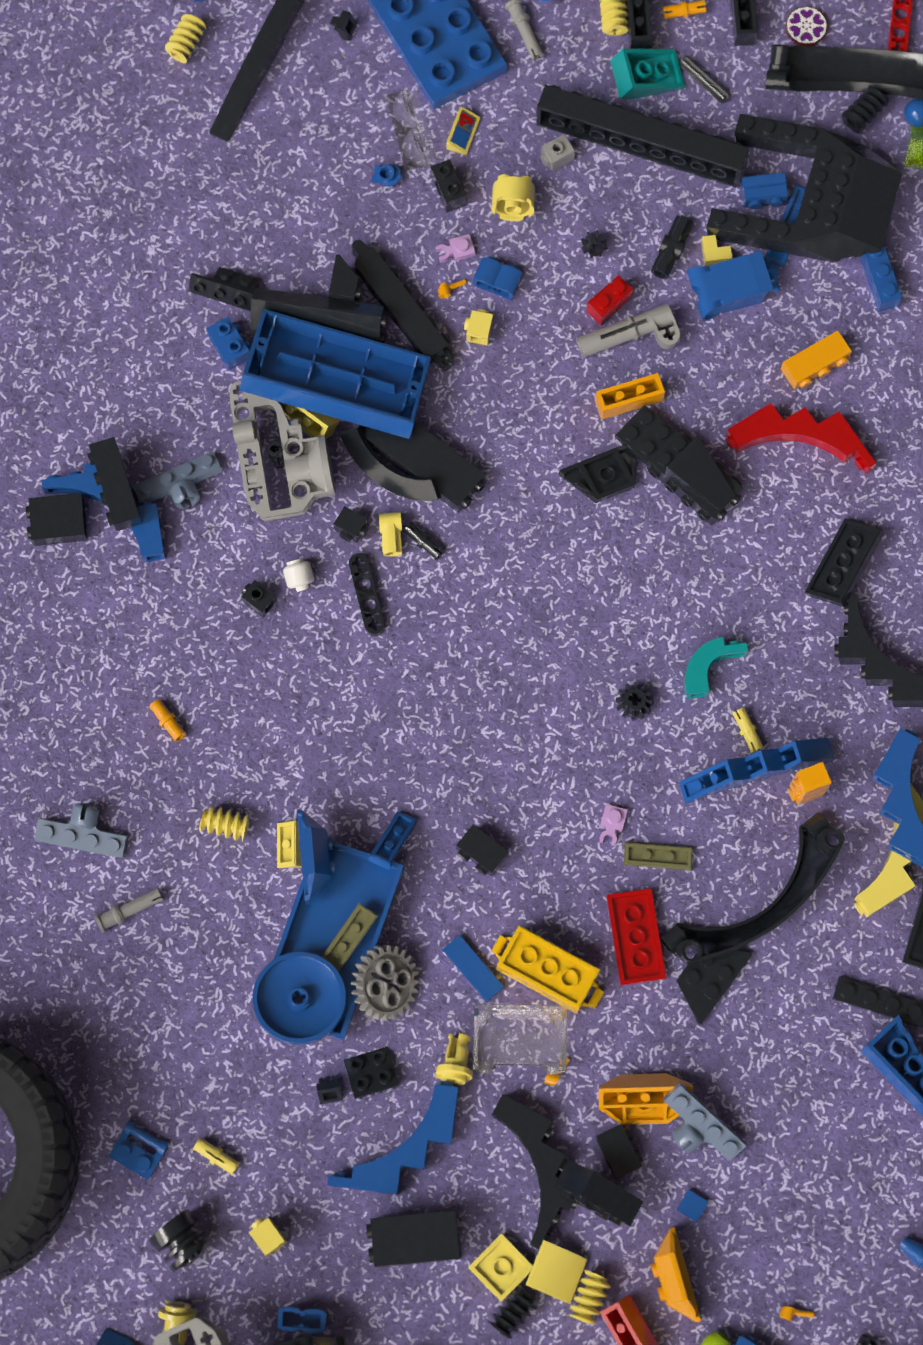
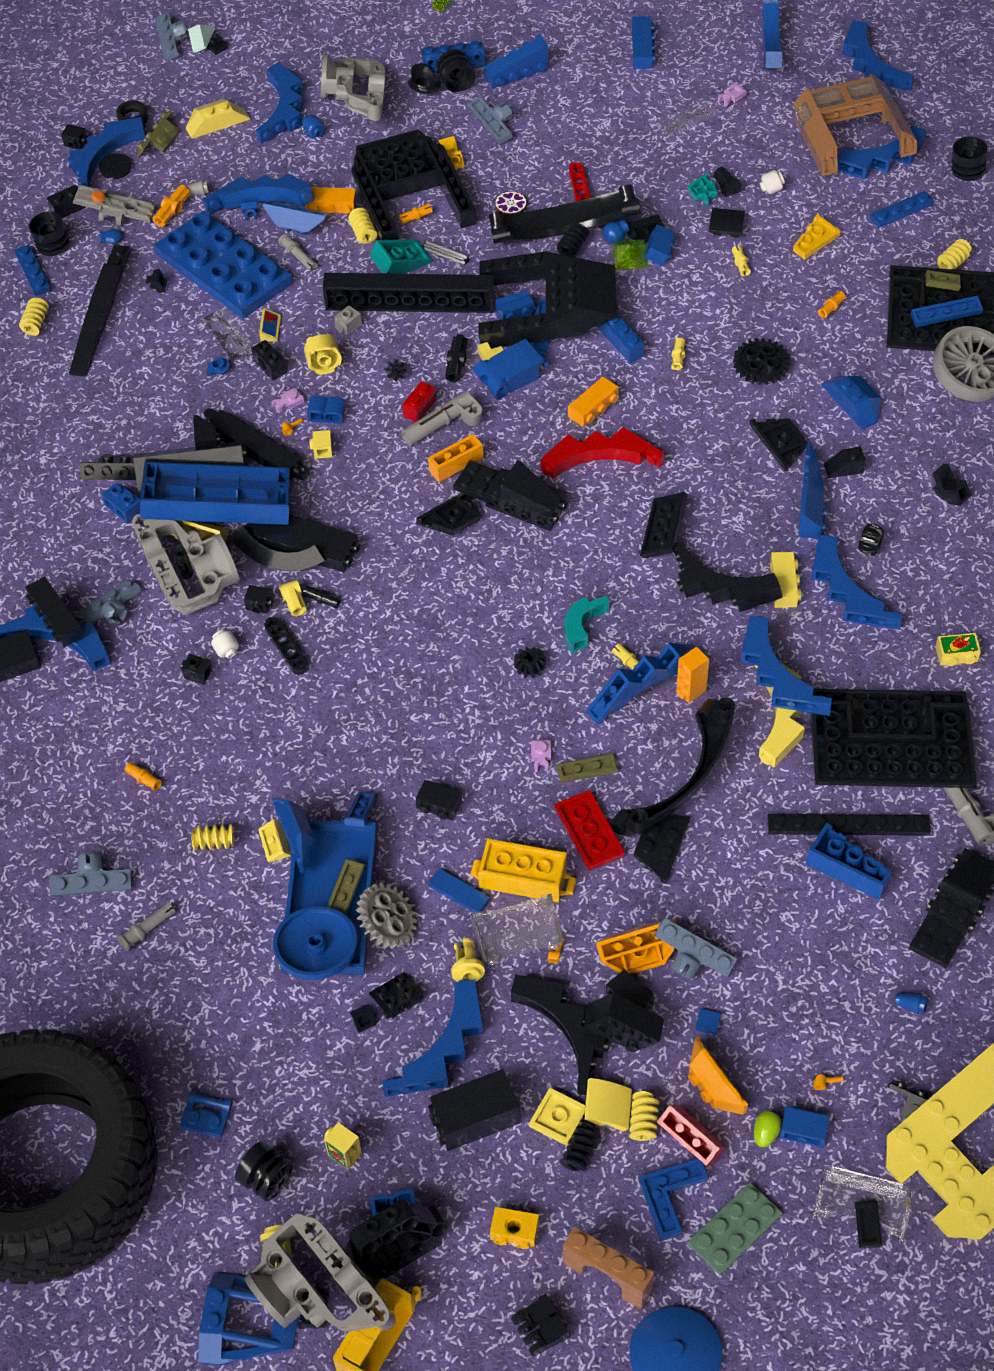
camera: 15 degrees left, 20 degrees down
(216, 1156) = (277, 1098): light yellow pin -> none

